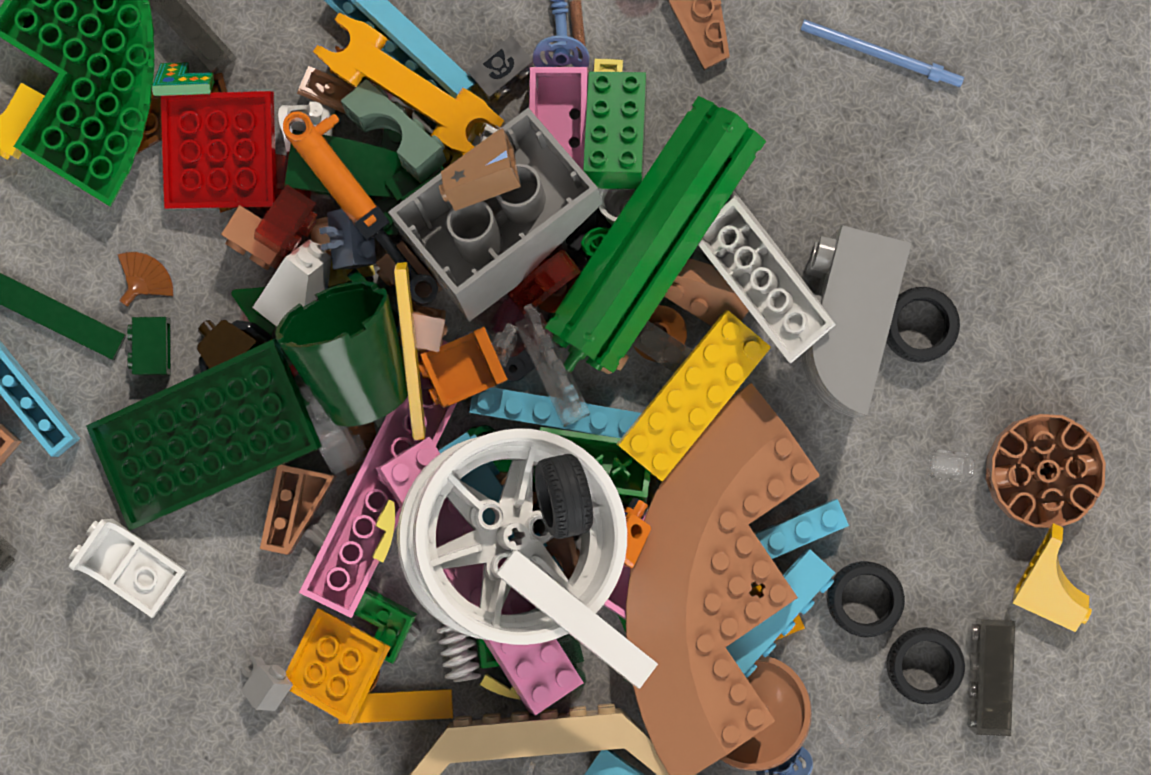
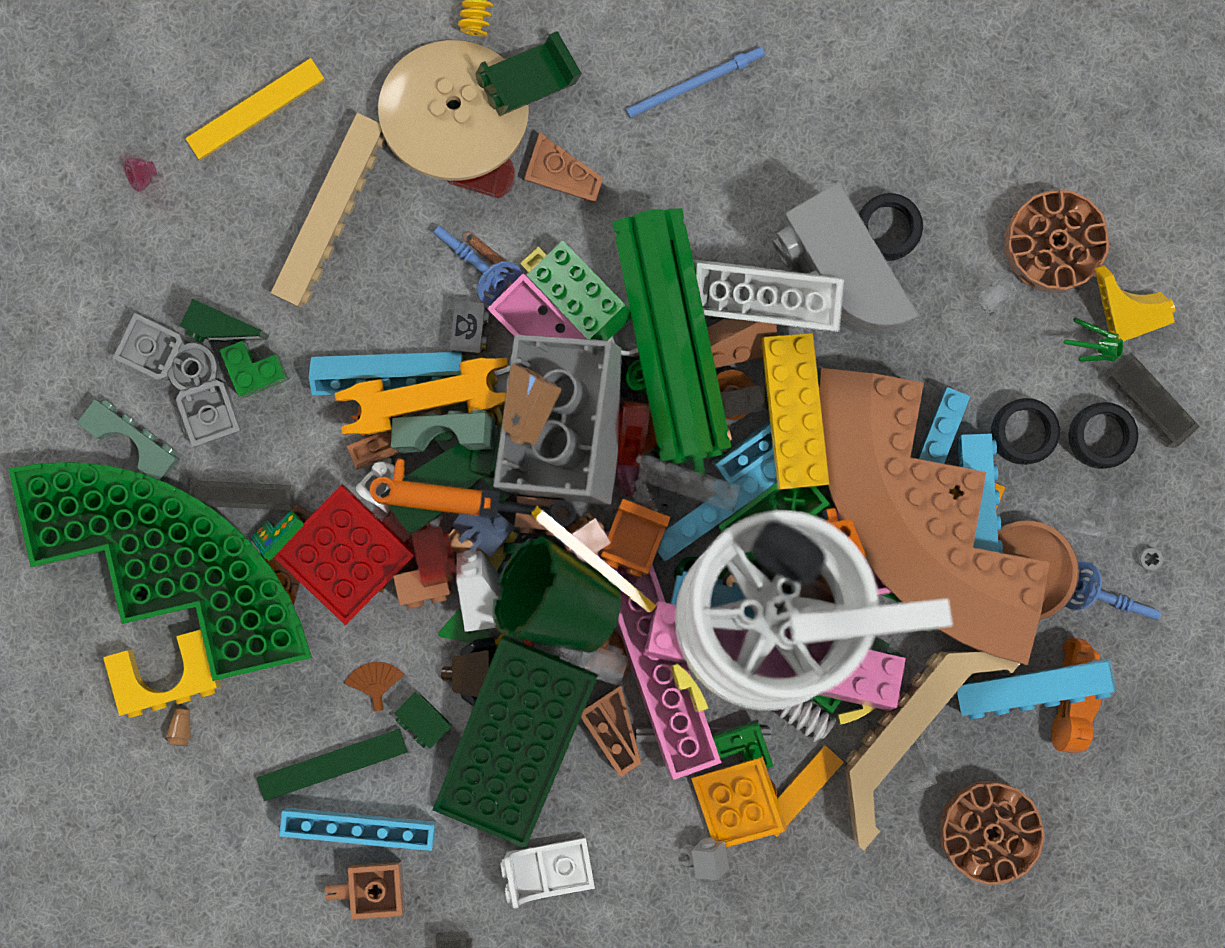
camera: 45 degrees left, 0 degrees up
(619, 391) = (745, 454): none -> medium azure brick
(1001, 599) = (1110, 347): none -> green plant

